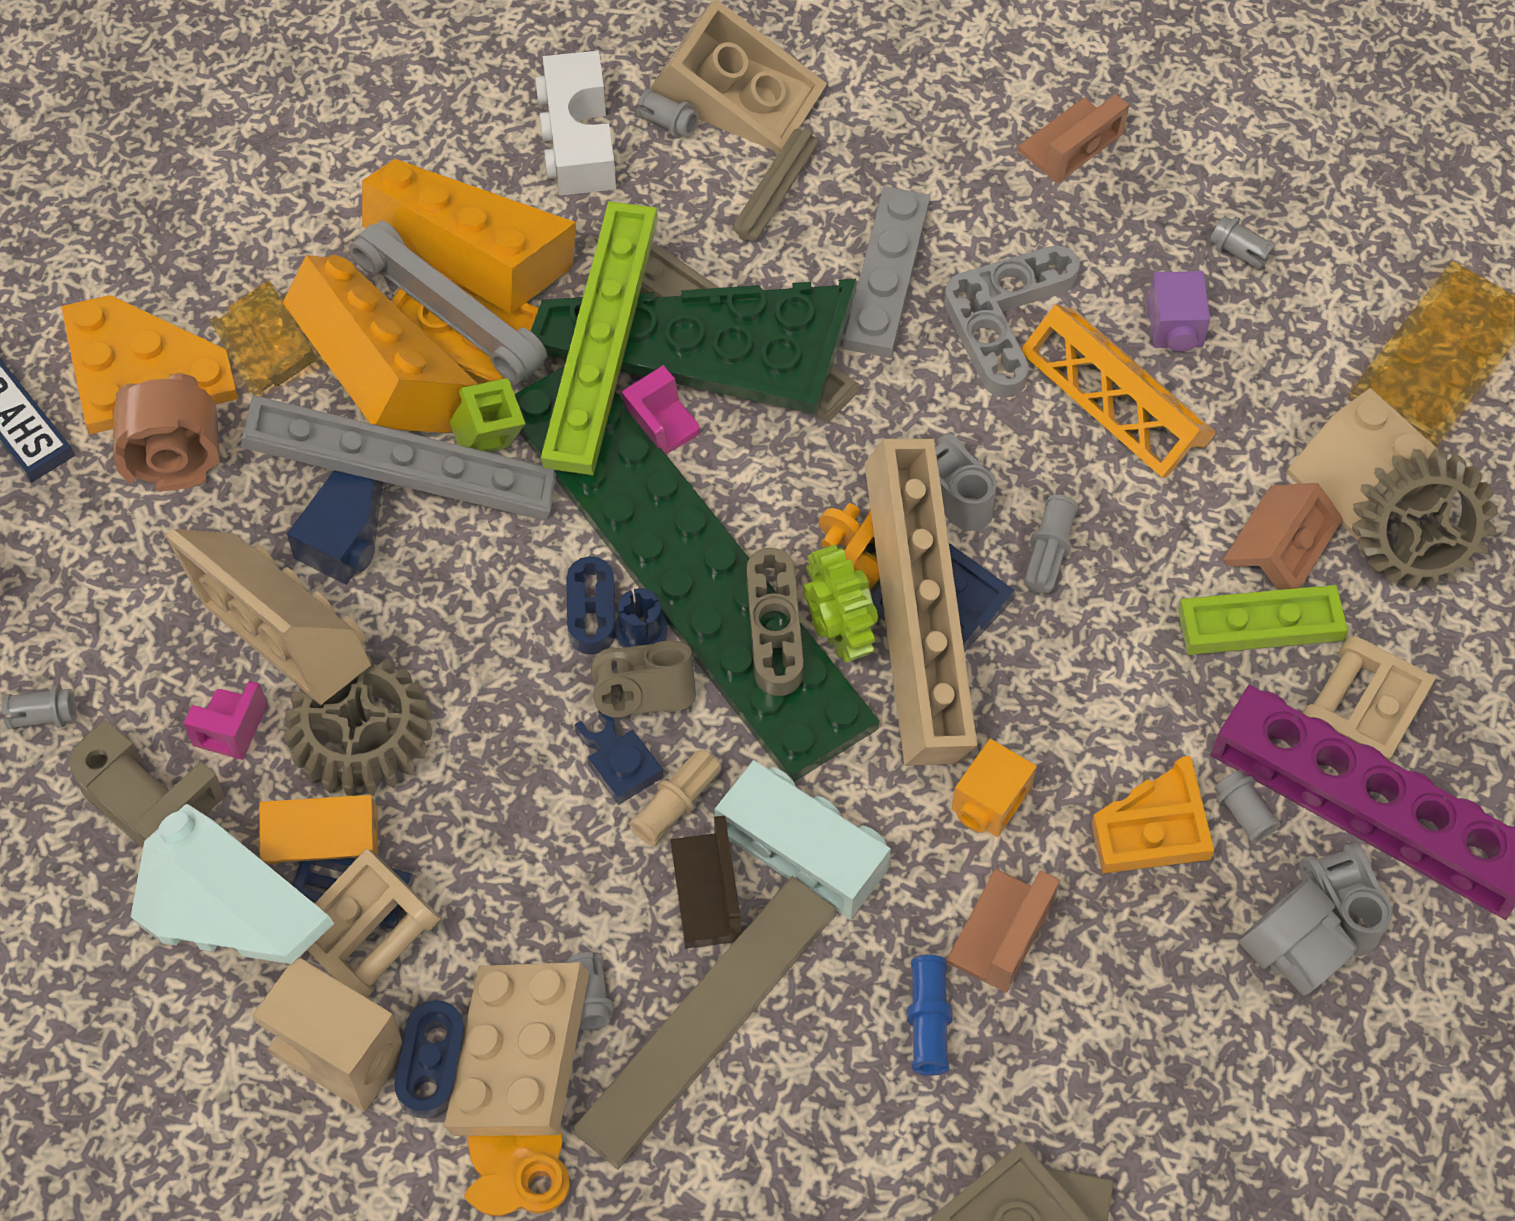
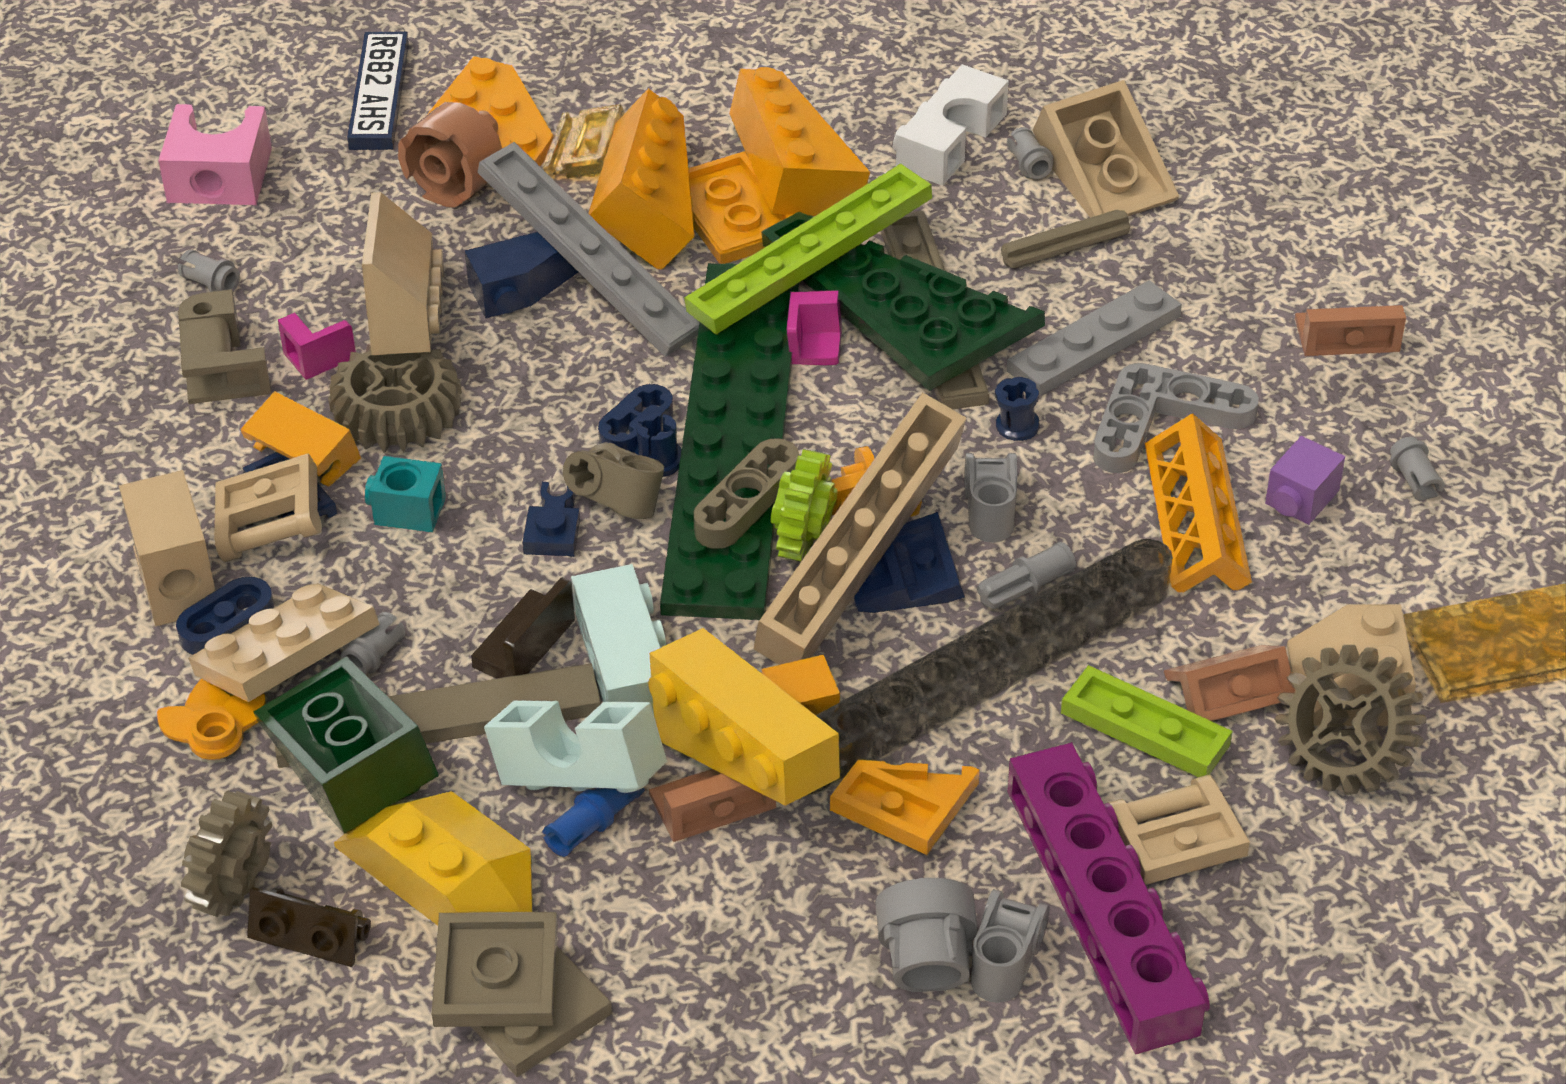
camera: 40 degrees right, 15 degrees down
(216, 892) = (191, 419): light aqua wedge -> none
(475, 799) = (406, 493): none -> teal brick
(487, 416) = (679, 257): lime brick -> none
(512, 352) = (740, 230): light grey piece -> none
(675, 797) = (548, 569): tan axle -> none
(678, 1108) = (348, 743): none -> dark green slope
(853, 994) = (612, 746): none -> light aqua arch
(858, 1155) = (443, 857): none -> yellow wedge
(907, 385) = (1012, 405): none -> dark blue bush
(1010, 857) = (739, 720): none -> yellow wedge
(1097, 675) = (999, 654): none -> clear smoke beam
(1246, 806) = (994, 825): light grey pin -> none

